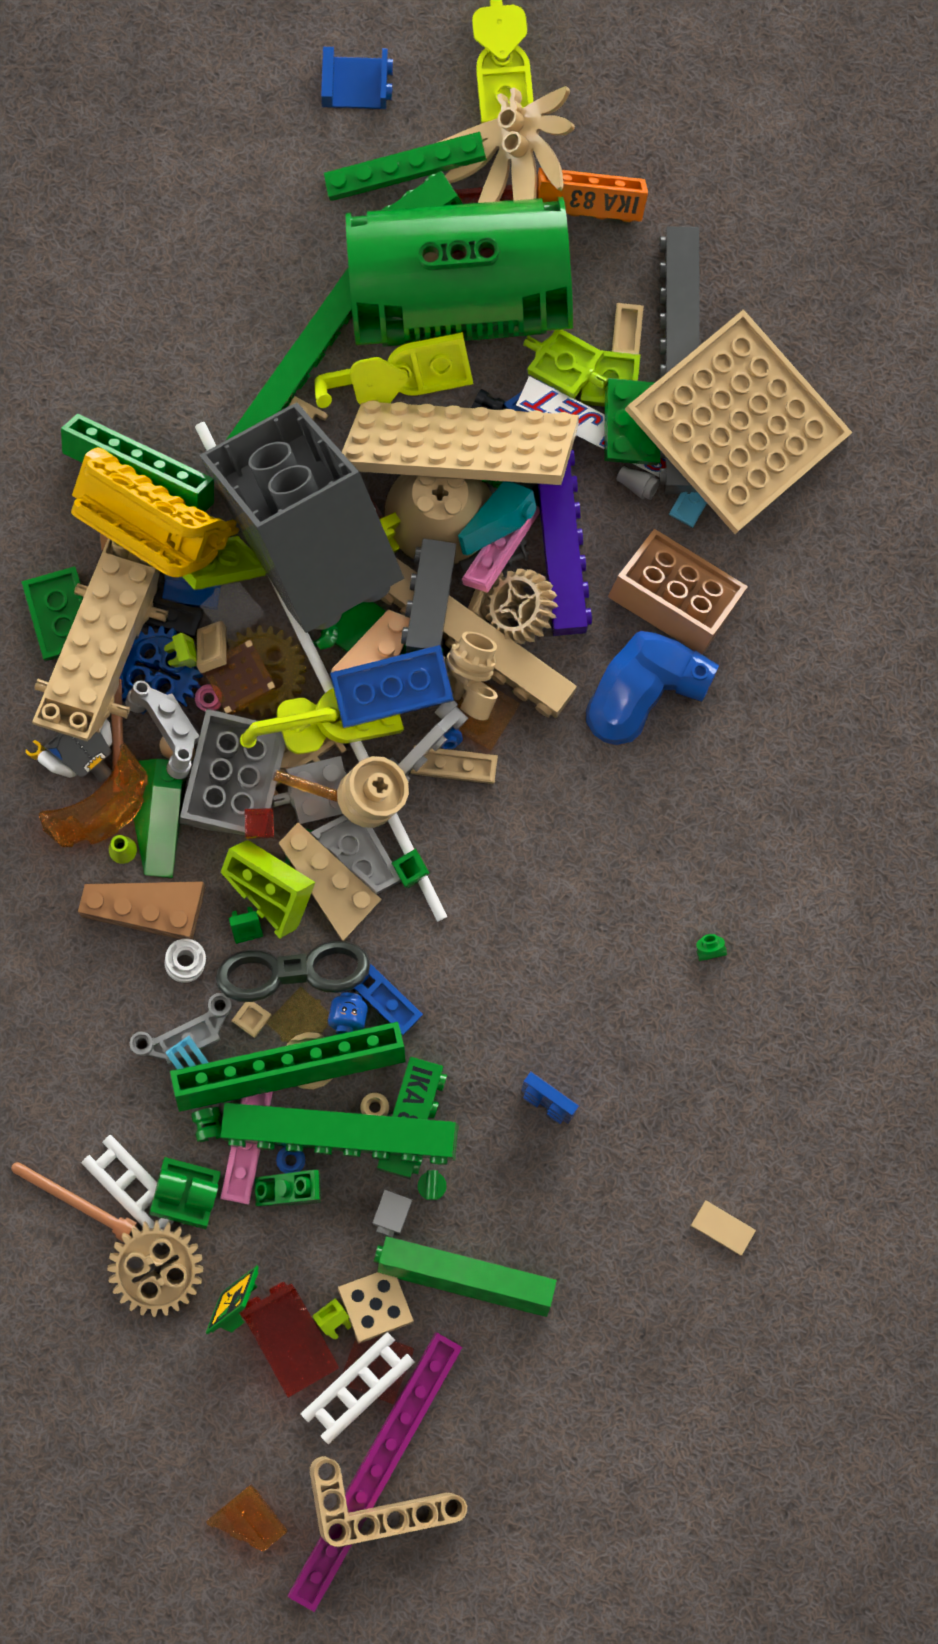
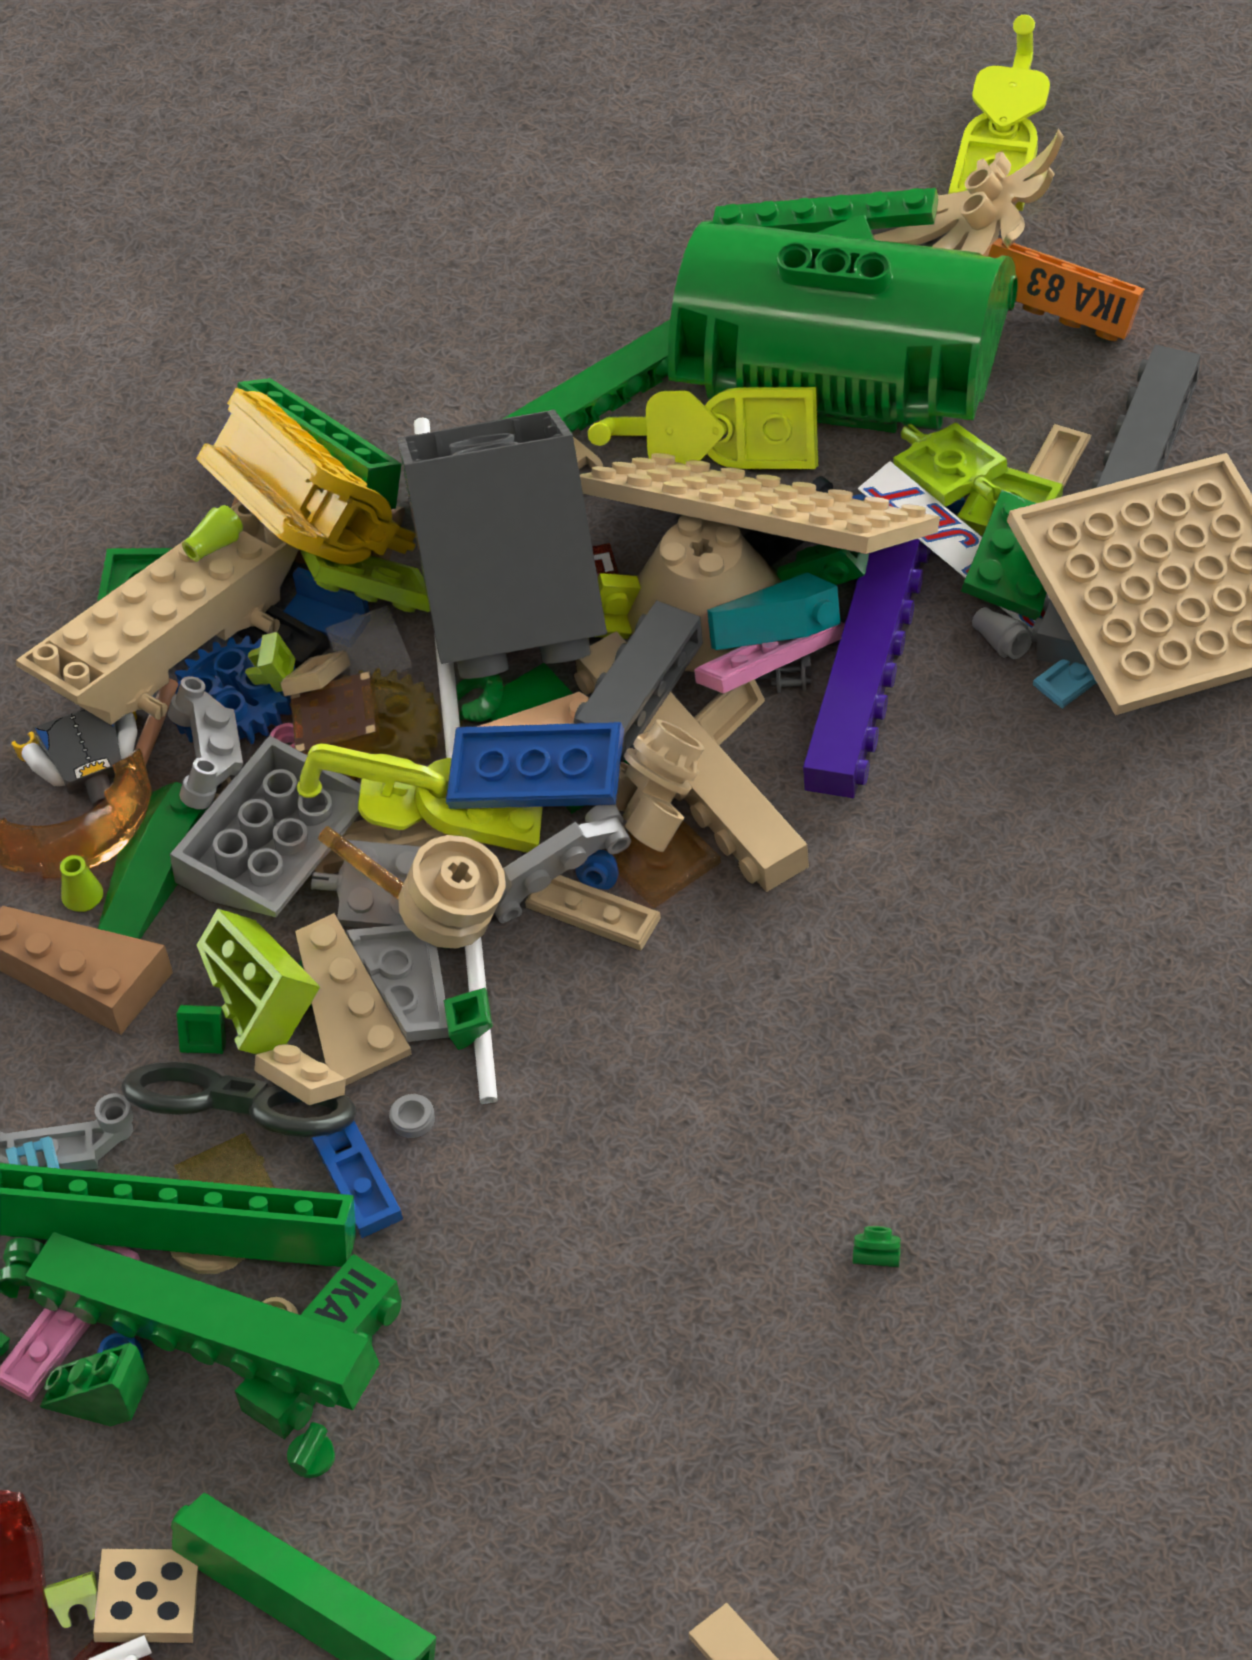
camera: 30 degrees right, 25 degrees down
(114, 576) = (215, 531): none -> lime cone
(182, 973) = (96, 1032): white wheel -> none
(251, 1018) = (155, 1152): tan tile -> none
(259, 823) = (274, 891): clear red tile -> none
(323, 941) = (299, 1074): none -> tan plate
(347, 1013) = (294, 1170): blue head -> none
(355, 81) = (797, 124): blue panel -> none
(391, 1213) = (232, 1469): light grey brick -> none
(399, 944) = (412, 1116): none -> light grey tile
(529, 610) = (769, 727): tan gear -> none
(539, 1092) = (530, 1361): blue plate -> none
(637, 681) = (903, 865): blue piece -> none
(677, 591) = (1004, 774): medium nougat slope -> none

